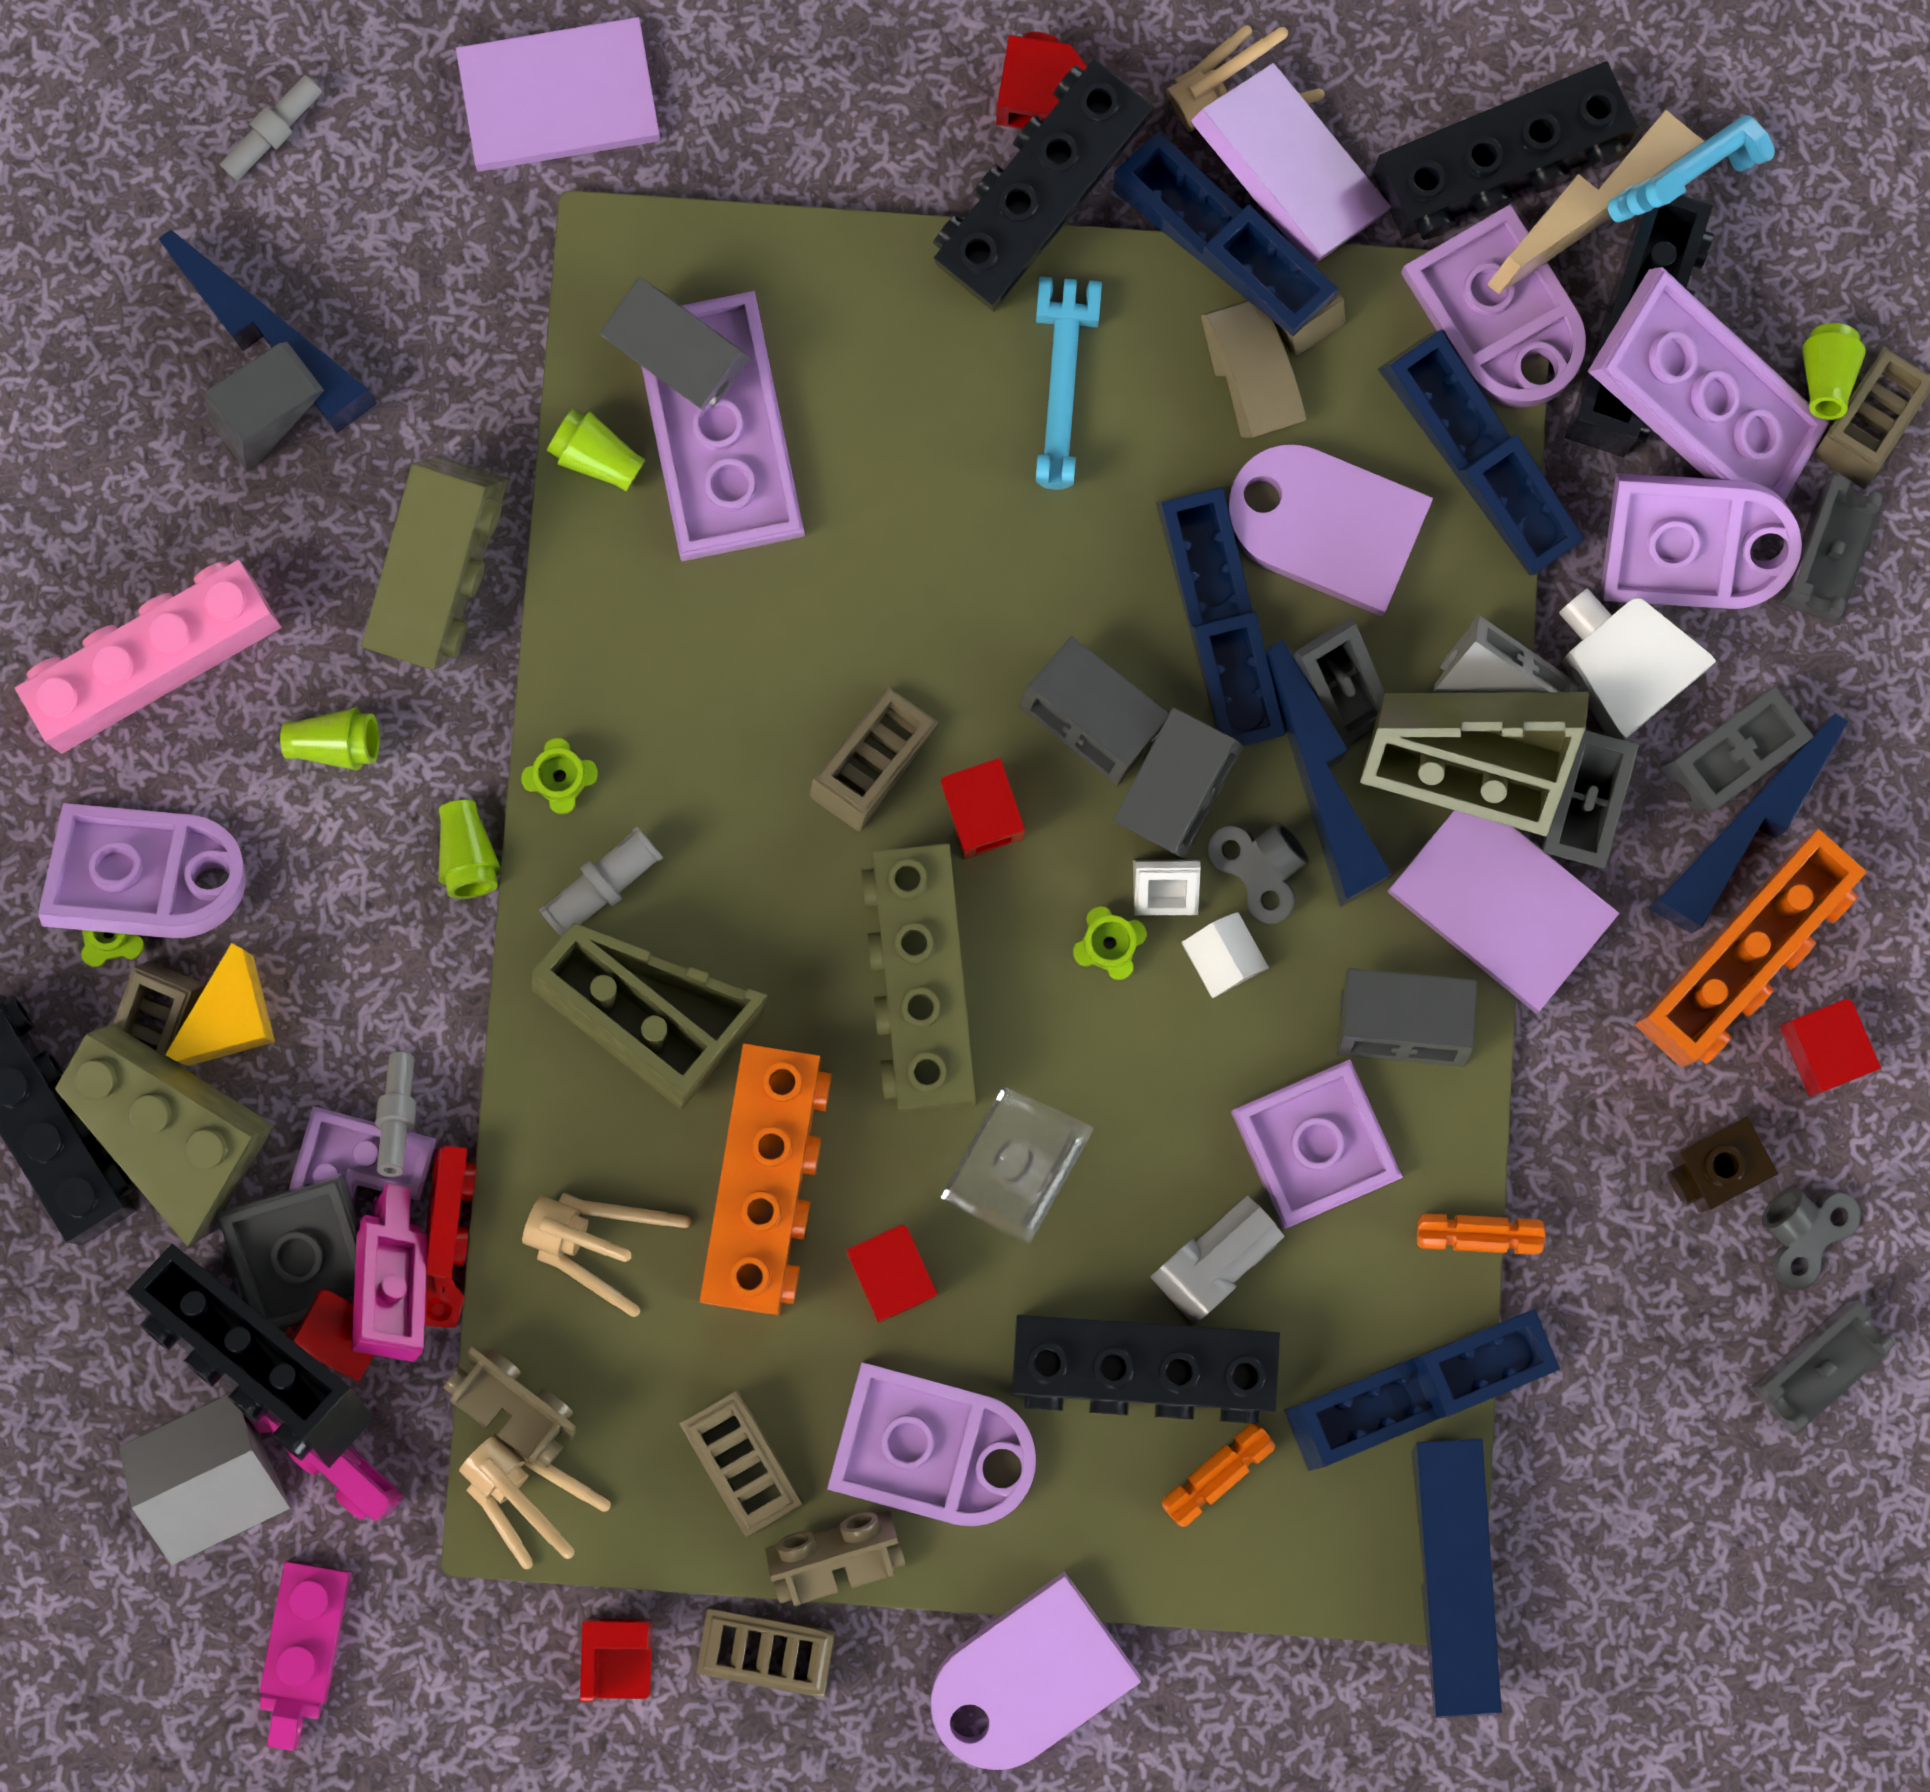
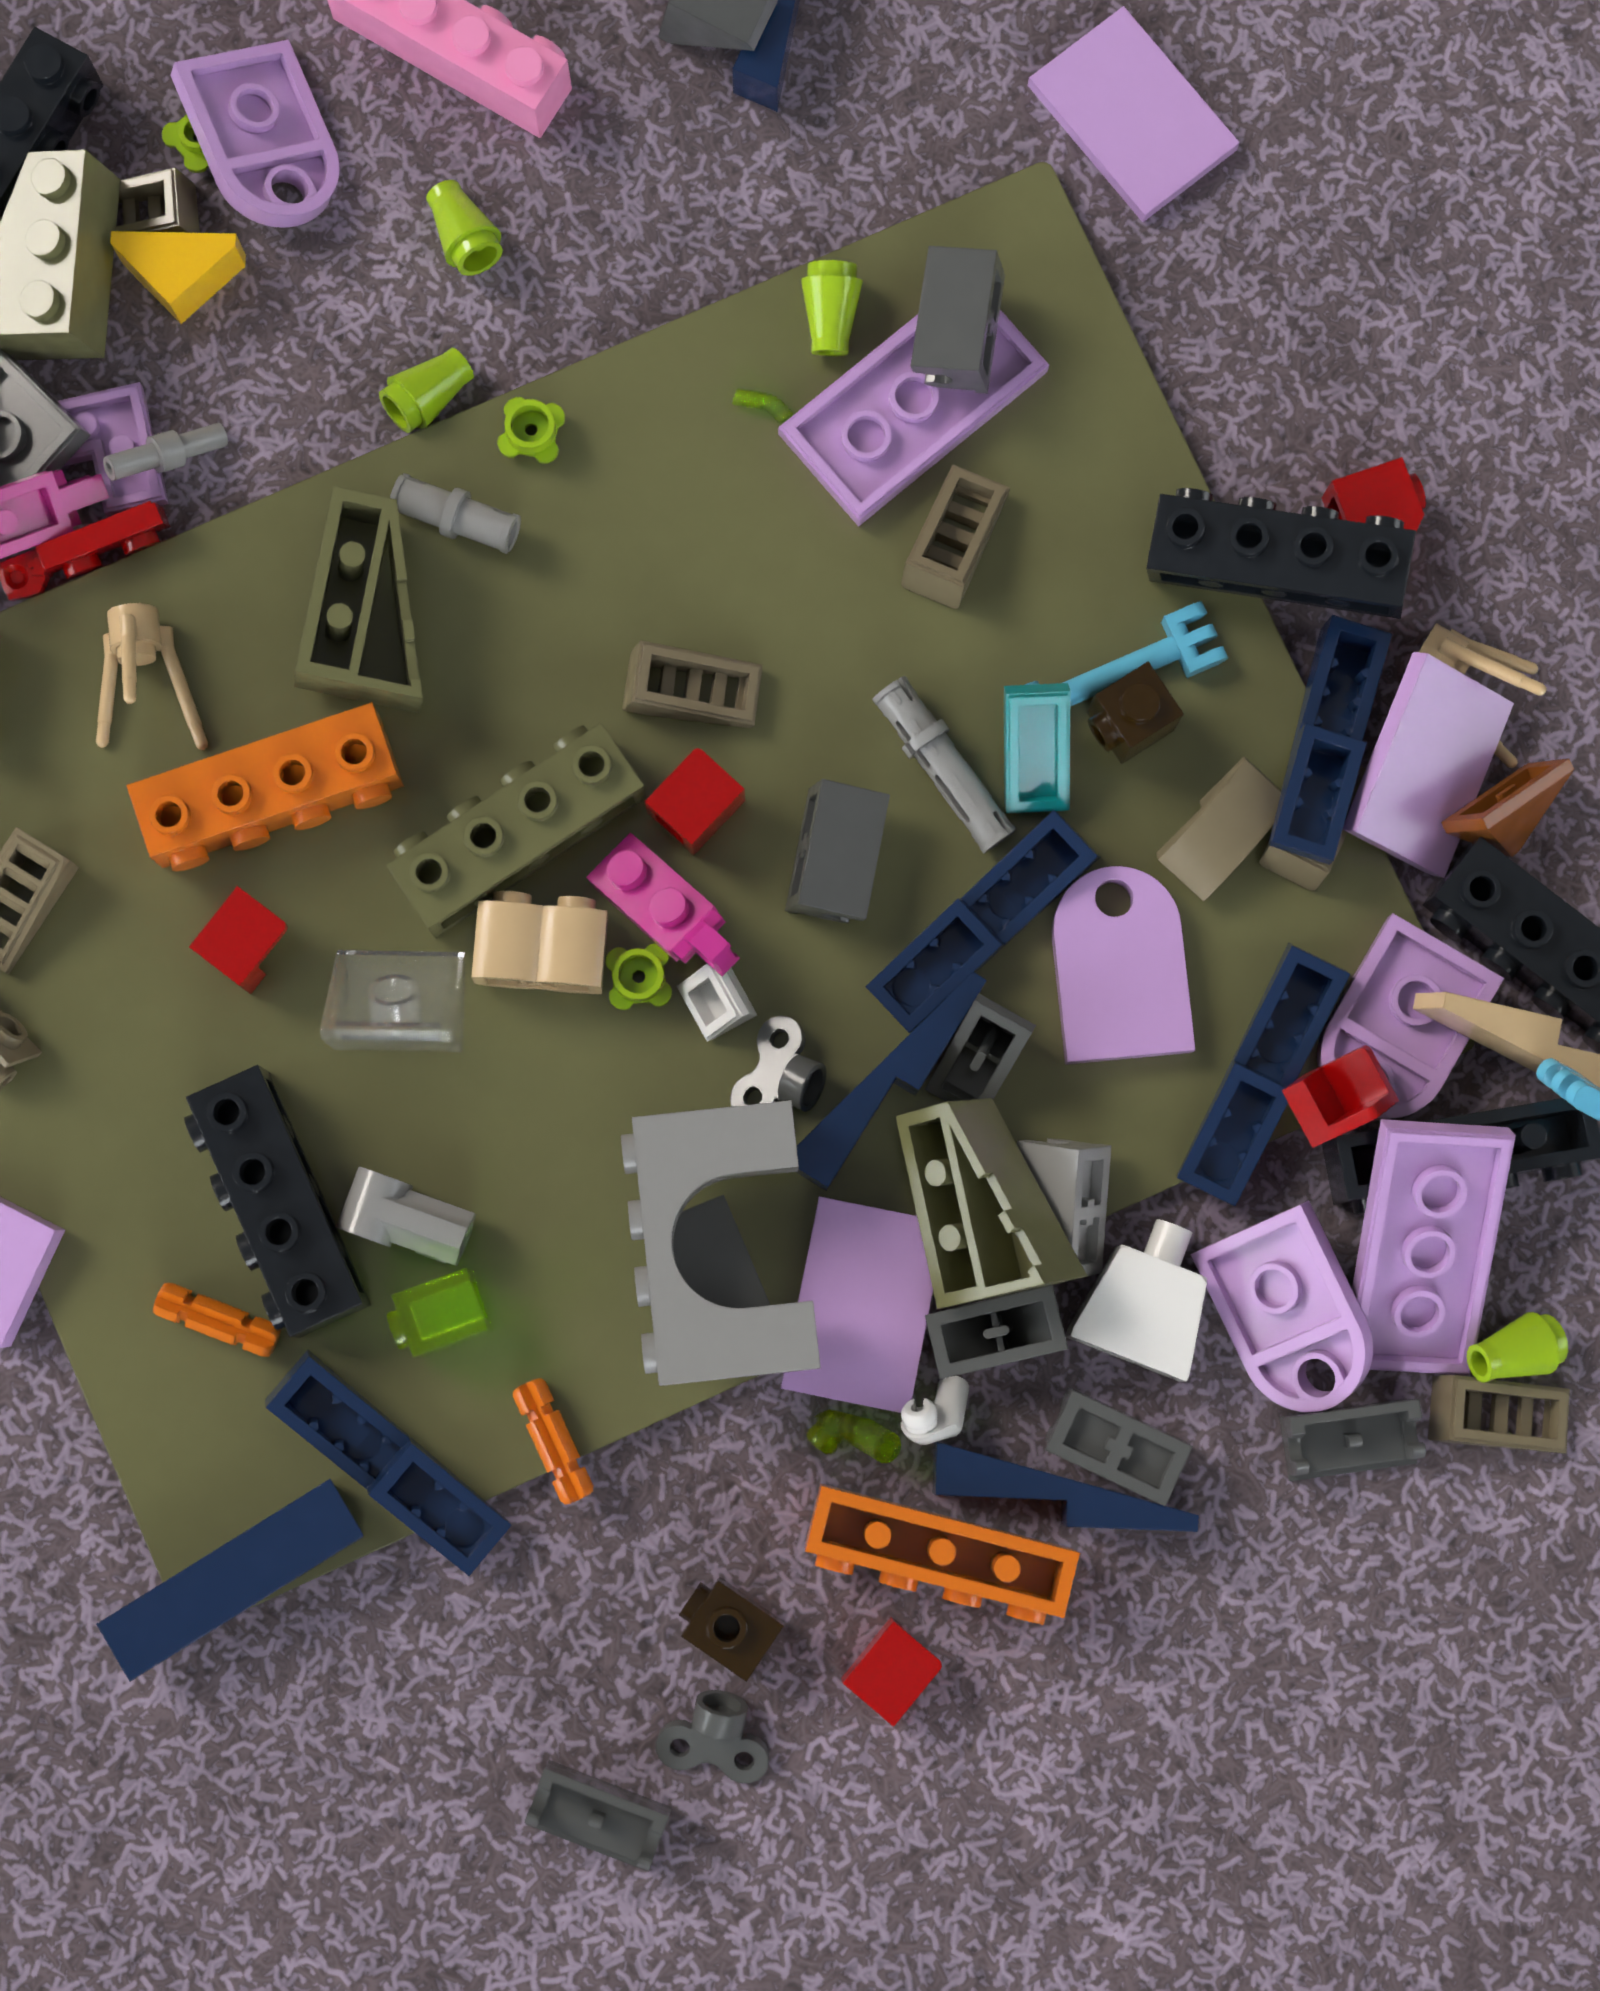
camera: 60 degrees right, 0 degrees up
(434, 561) = (662, 223): olive wedge -> none
(660, 549) = (762, 399): none -> clear neon green leg
(888, 487) = (941, 573): none -> dark tan slope
(926, 1447) = (111, 1051): lavender tile -> none
(1037, 1013) = (540, 945): none -> tan brick
(1061, 885) = (662, 904): none -> dark pink hinge
(1063, 576) = (936, 753): none -> light grey pin
(1097, 487) = (1037, 747): none -> teal tile
(1111, 388) = (1133, 713): none -> dark brown brick
(1178, 782) = (810, 959): dark grey hinge -> none
(1224, 954) = (683, 1080): white slope -> none
(1307, 994) = (675, 1161): none -> light grey arch
(1316, 1144) = (556, 1253): lavender tile -> none
(1320, 1273) = (439, 1314): none -> clear neon green brick
(1360, 114) = (1511, 807): none -> dark orange slope
(1543, 395) = (1340, 1095): none -> red panel
(1611, 963) = (858, 1431): none -> clear neon green arm
(1635, 887) = (937, 1419): none -> white arm

